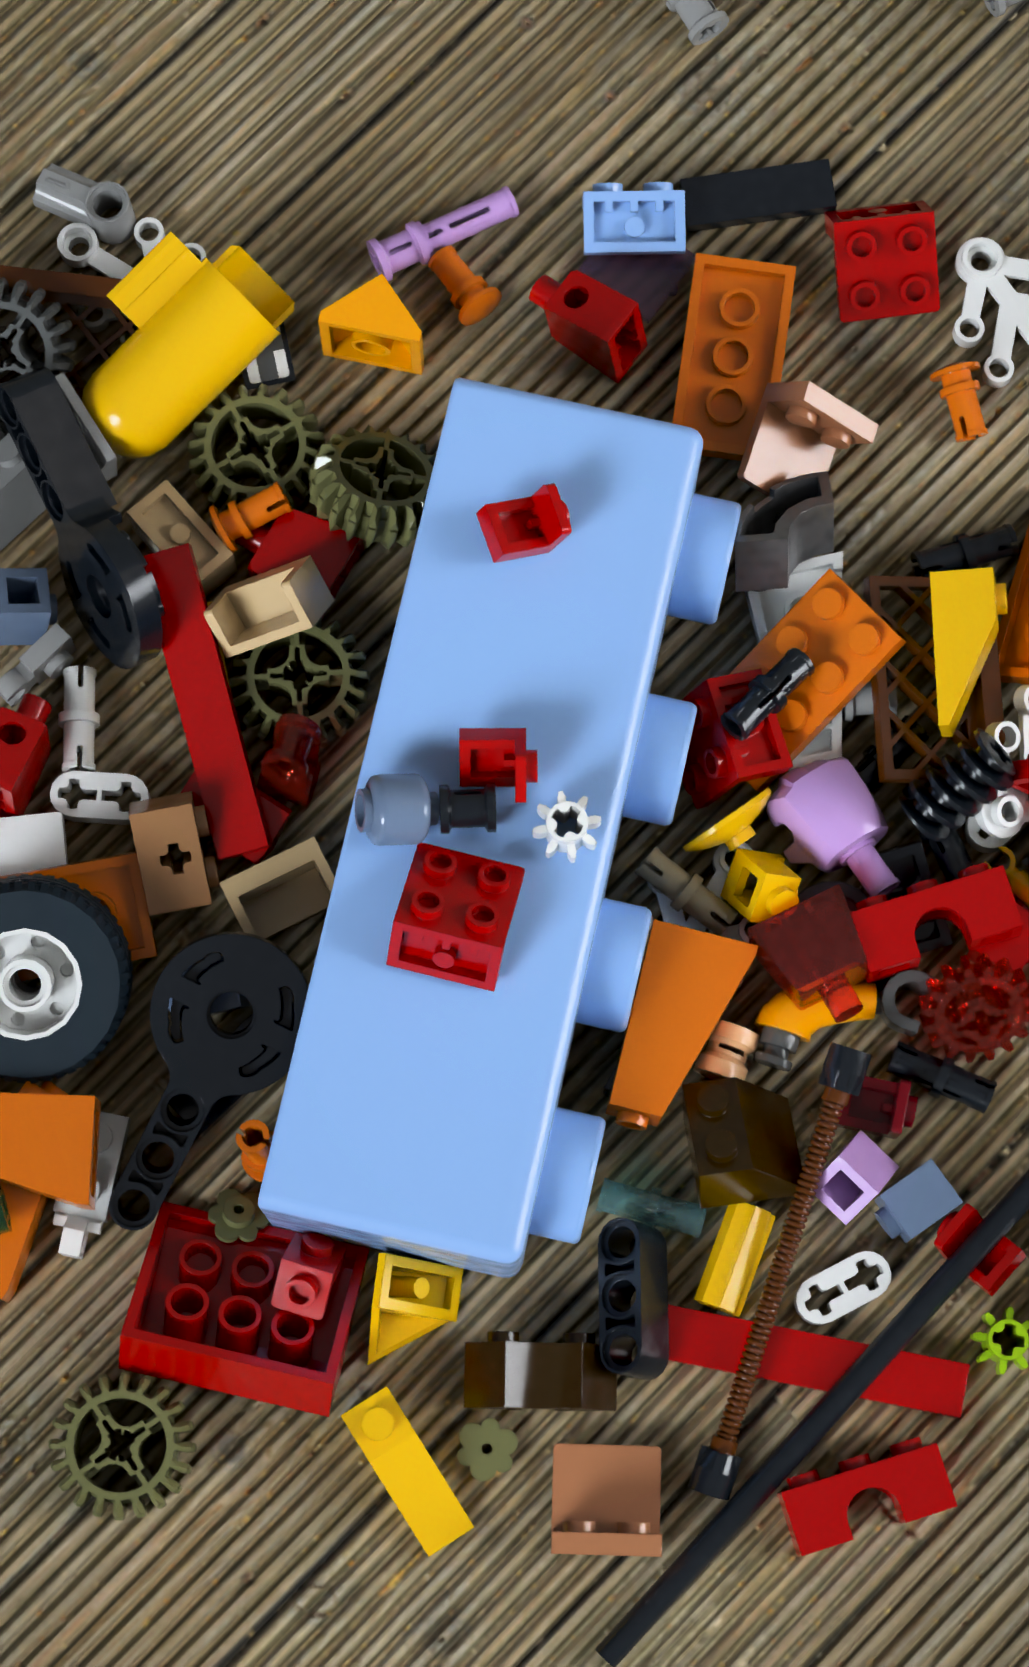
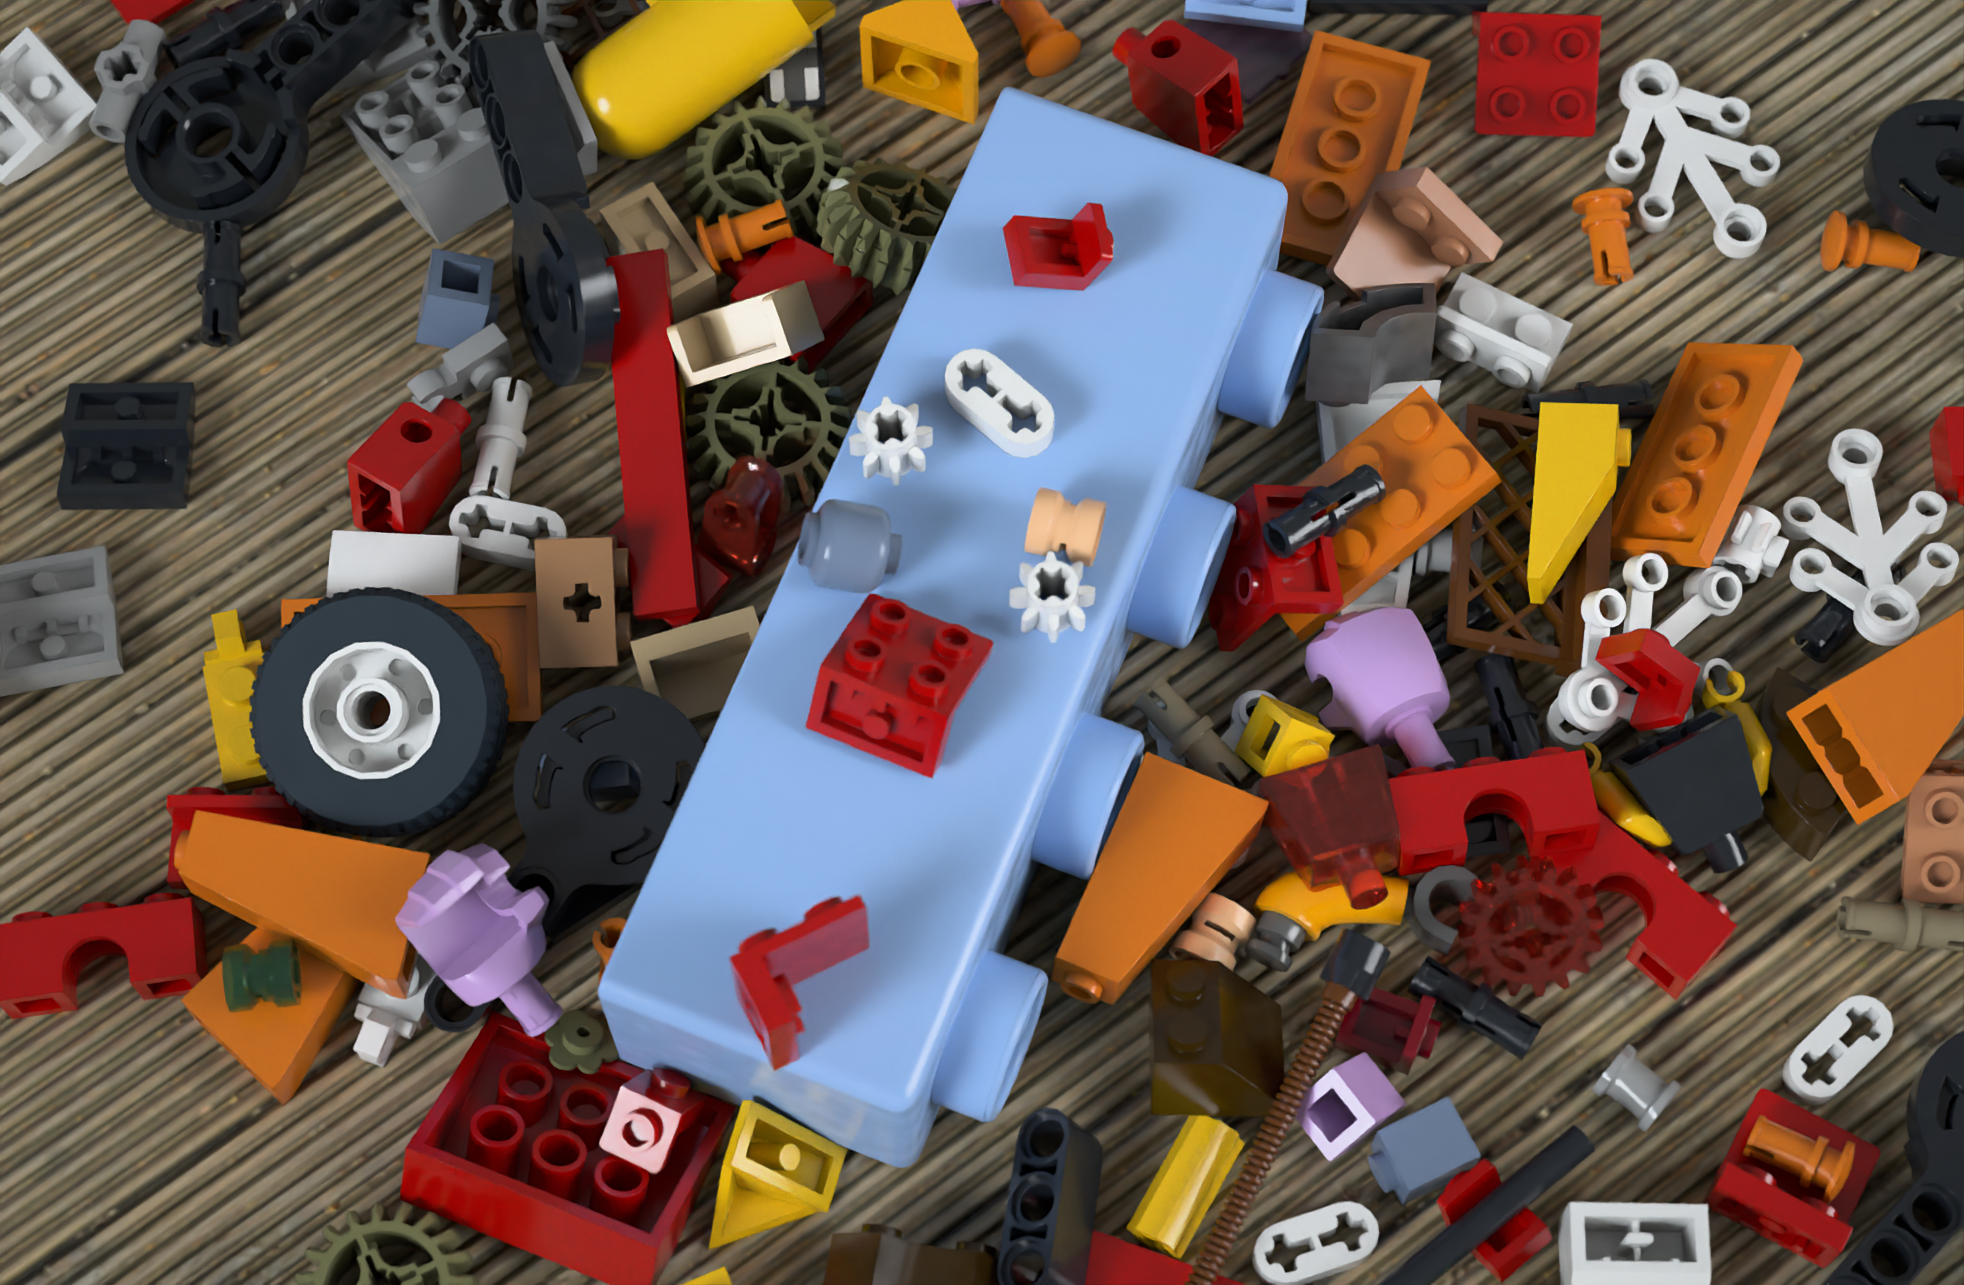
camera: 10 degrees right, 10 degrees down
(150, 1156) = (481, 933): none -> lavender piece
(403, 1205) = (776, 961): none -> red bracket
(409, 699) = (888, 424): none -> white gear
(467, 808) = (935, 559): black bush -> none
(497, 758) = (980, 506): red bracket -> none
(504, 653) = (1008, 392): none -> white beam
(566, 765) = (1060, 526): none -> light nougat wheel
(651, 1207) = (1093, 1109): clear light blue pin -> none
(733, 828) = (1258, 665): yellow dish -> none
(885, 499) = (1499, 333): none -> white bracket
(961, 788) = (1543, 655): black piece -> none

